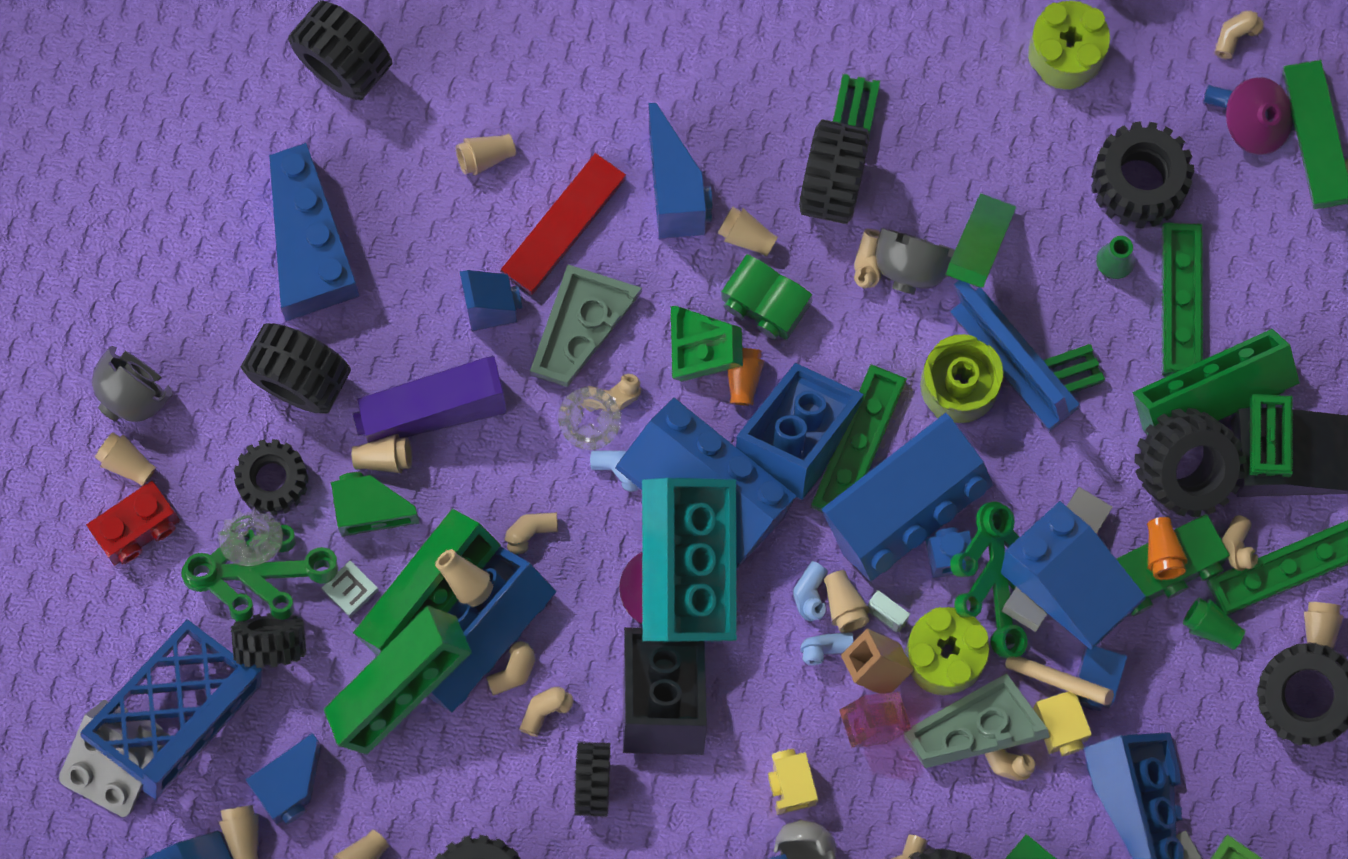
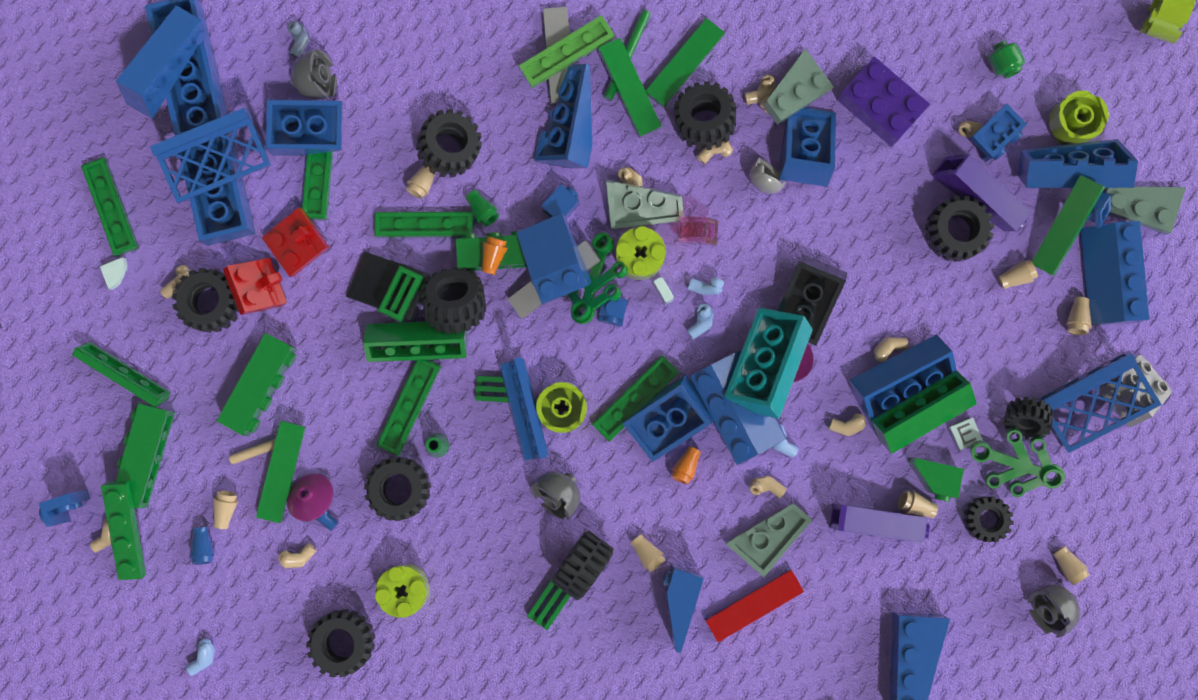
camera: 155 degrees left, 10 degrees up
(133, 524) = (1078, 525): red bracket -> none
(263, 545) = (1013, 475): clear gear -> none
(288, 781) = (1044, 333): blue slope -> none
(296, 368) = (955, 575): black tyre -> none
(397, 680) = (966, 359): green brick -> none
(466, 580) = (904, 403): tan cone -> none
(484, 152) = (786, 671): tan cone -> none
(489, 299) = (821, 573): blue slope -> none
(543, 704) = (880, 320): tan arm -> none
(589, 436) = (793, 468): clear gear -> none
(592, 779) = (872, 262): black tyre -> none
(702, 345) = (704, 493): green wing -> none
(766, 297) = (653, 506): green brick -> none
(792, 781) = (758, 217): light yellow brick -> none
(845, 603) = (684, 307): tan cone -> none
(865, 264) = (587, 498): tan arm -> none
(877, 662) = (684, 261): medium nougat brick -> none
(907, 497) = (626, 347): blue slope -> none
(981, 240) = (515, 482): green tile -> none
(1060, 679) = (583, 206): tan bar -> none
(1065, 723) = (592, 187): light yellow brick -> none
(1240, 556) = (449, 246): tan arm -> none

